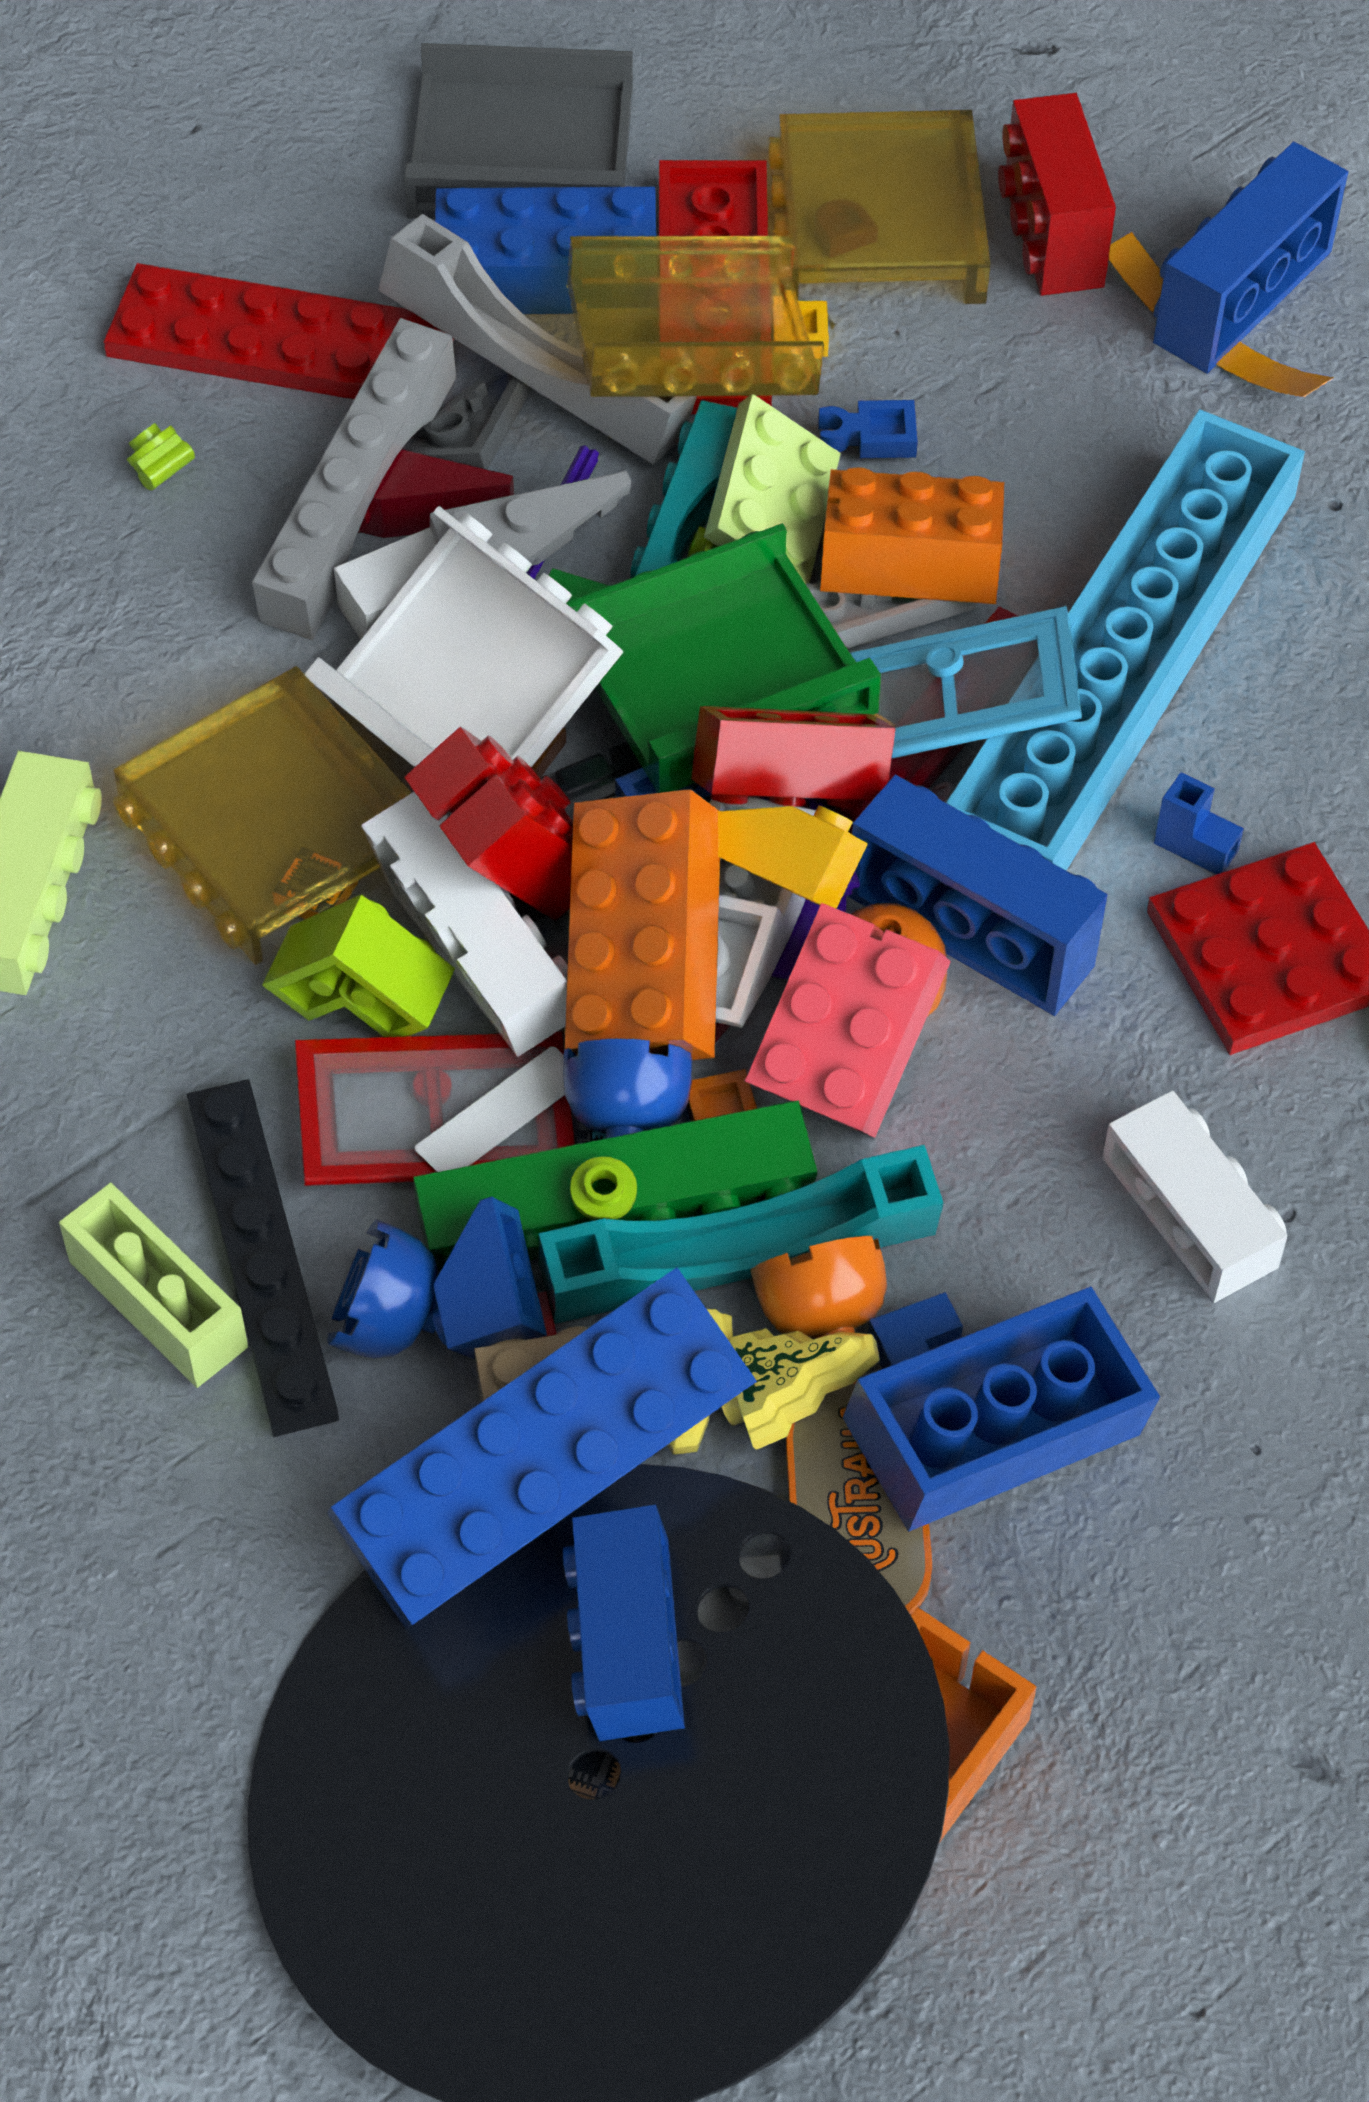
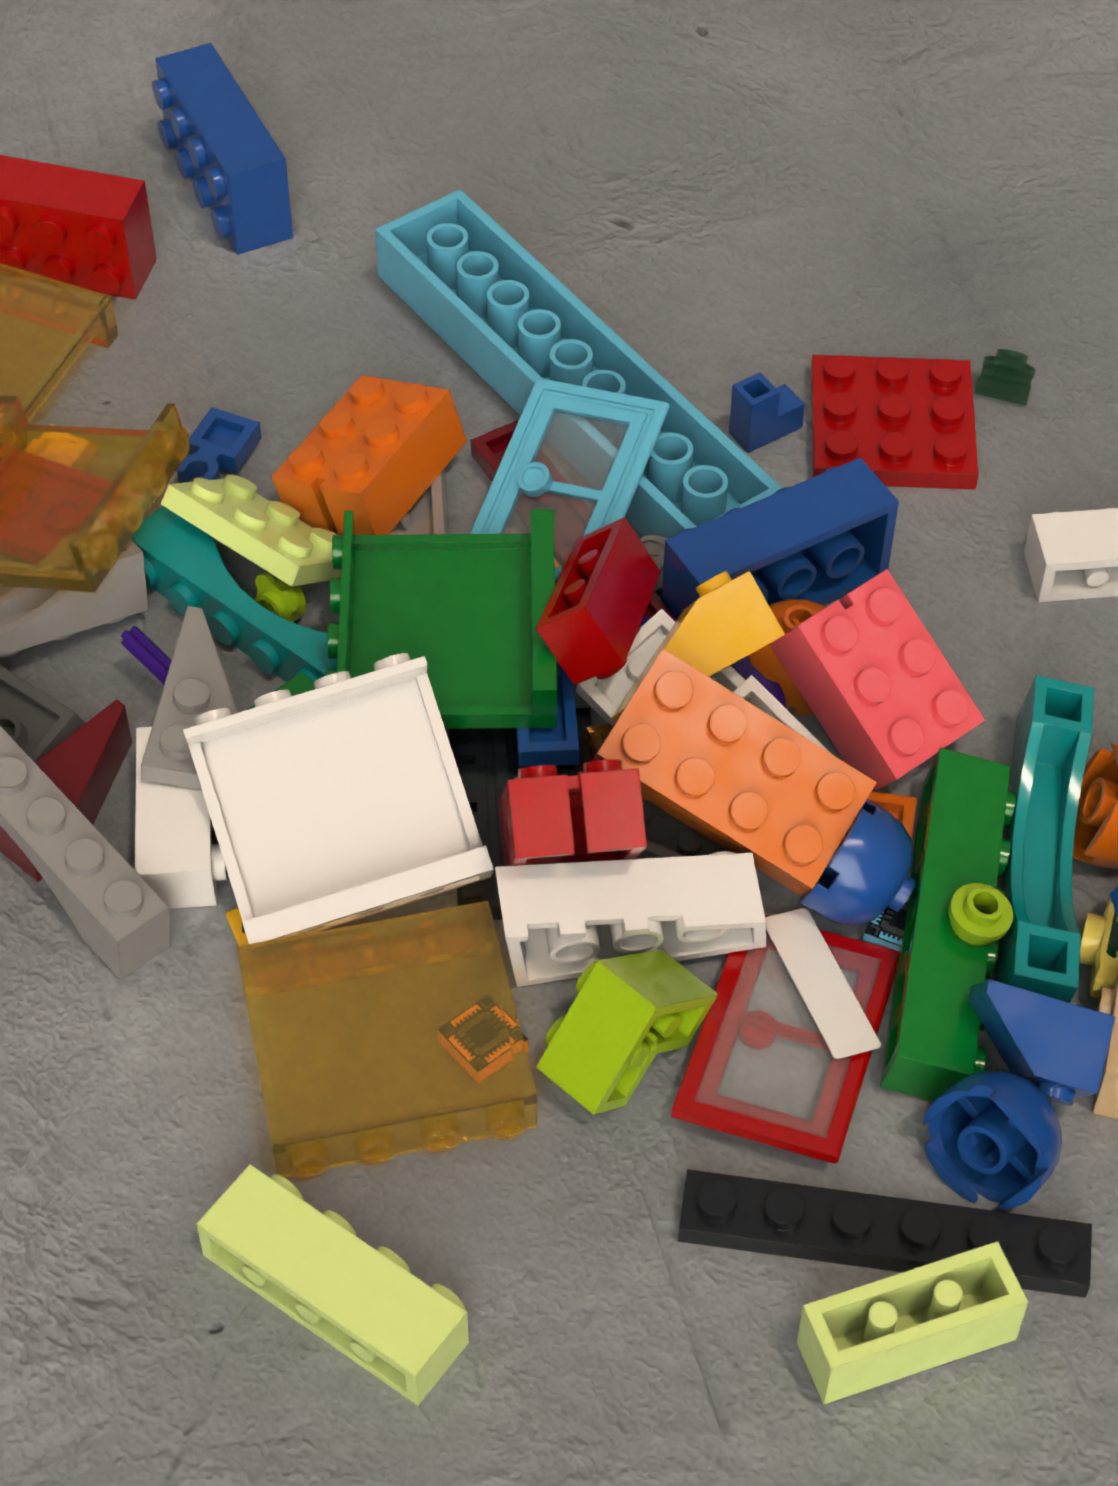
camera: 65 degrees left, 5 degrees down
(1144, 279) = (302, 209): light orange sticker -> none

